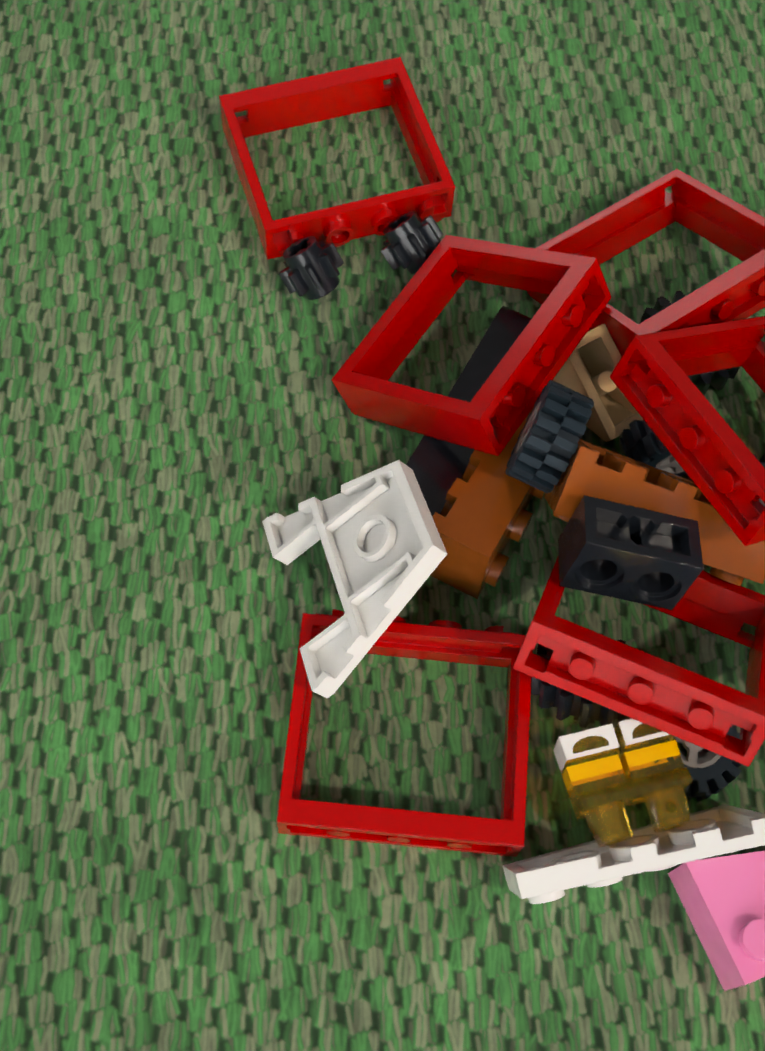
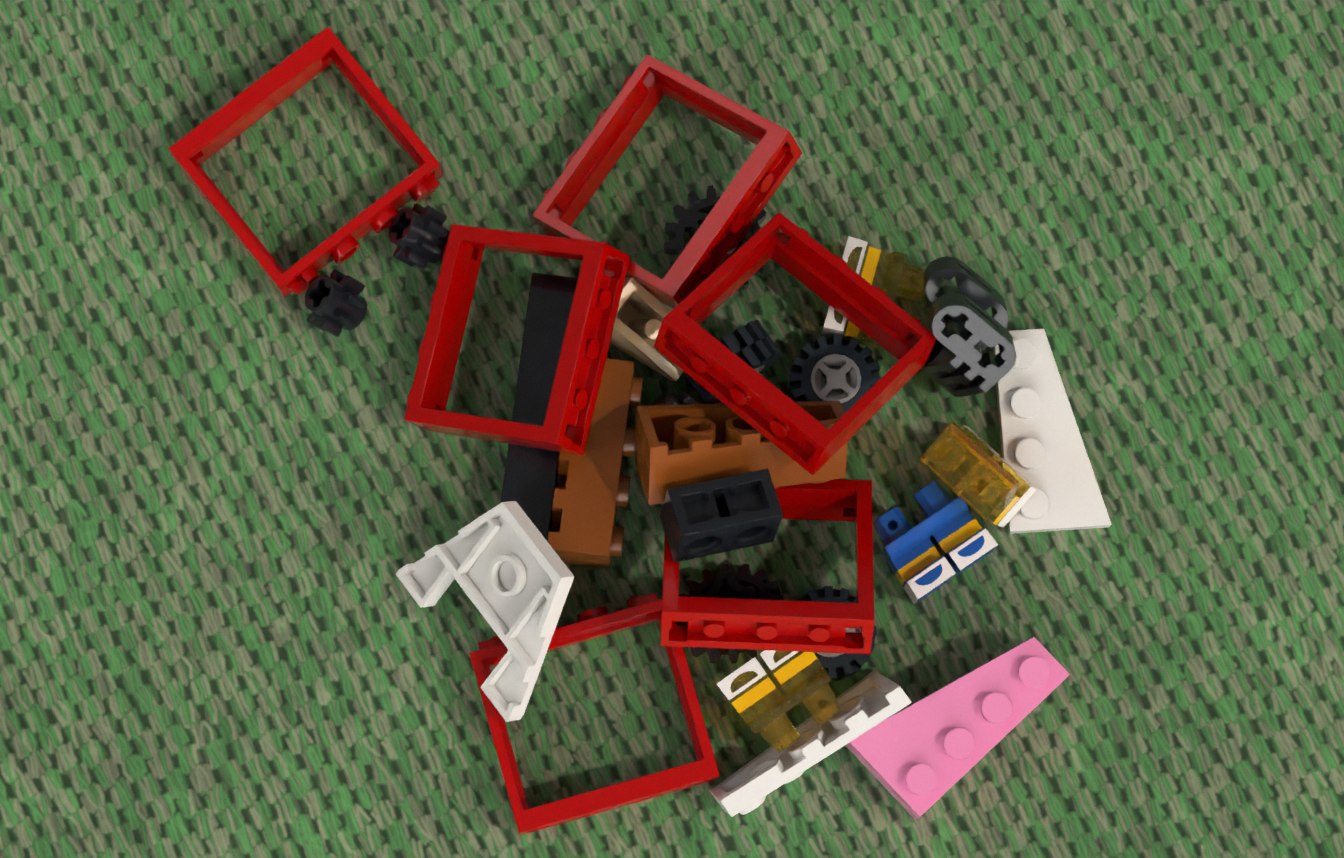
camera: 20 degrees left, 15 degrees up
(549, 436) = (621, 430): black wheel -> none

